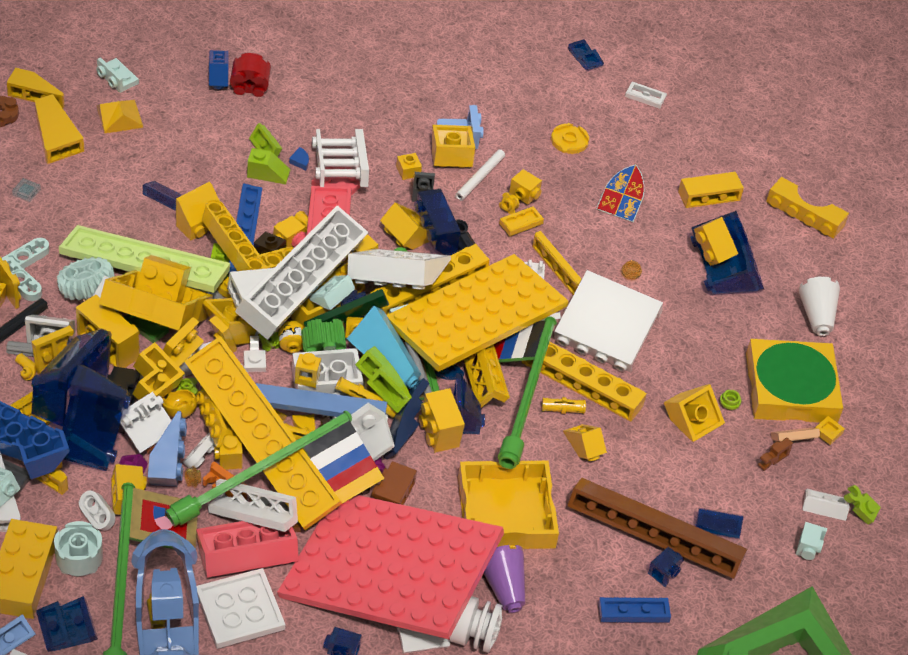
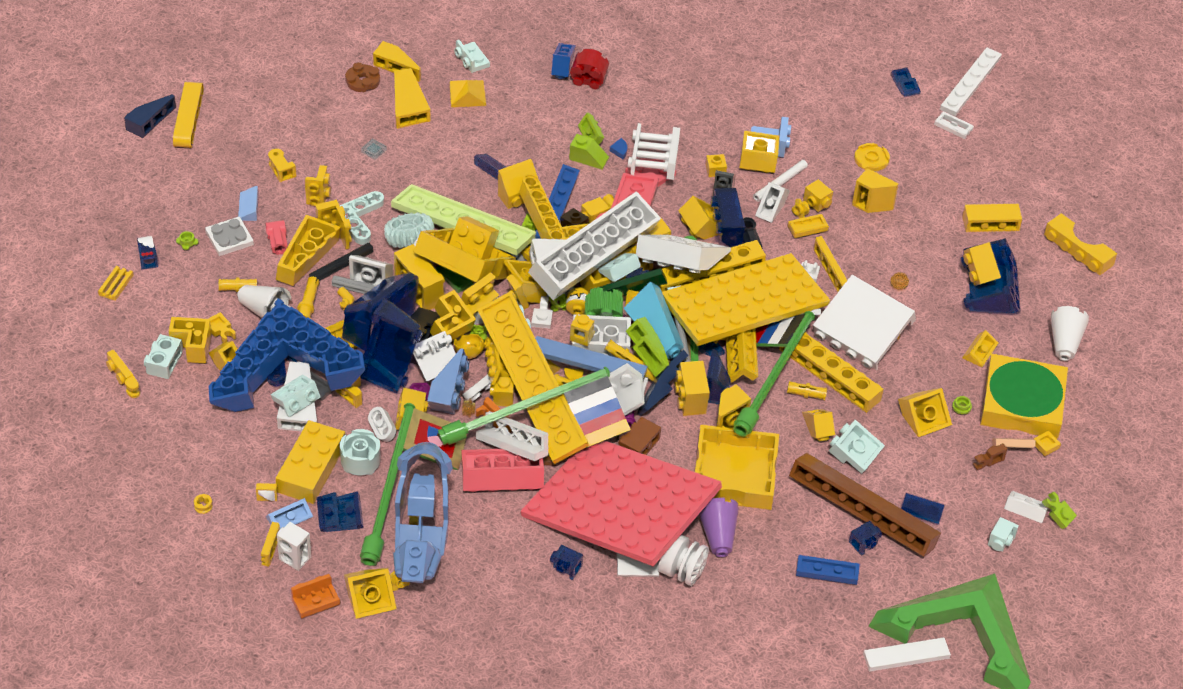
camera: 15 degrees right, 0 degrees up
(49, 346) = (366, 281): yellow wing -> none
(240, 608) = (486, 519): white plate -> none
(478, 199) = (772, 202): none -> white slope
(489, 436) = (731, 404): none -> yellow slope
(585, 176) = (874, 192): none -> yellow slope
(623, 194) = (908, 212): shield -> none
(631, 462) = (855, 446): none -> light aqua plate
(651, 47) = (970, 81): none -> white plate
(733, 334) = (980, 349): none -> yellow slope

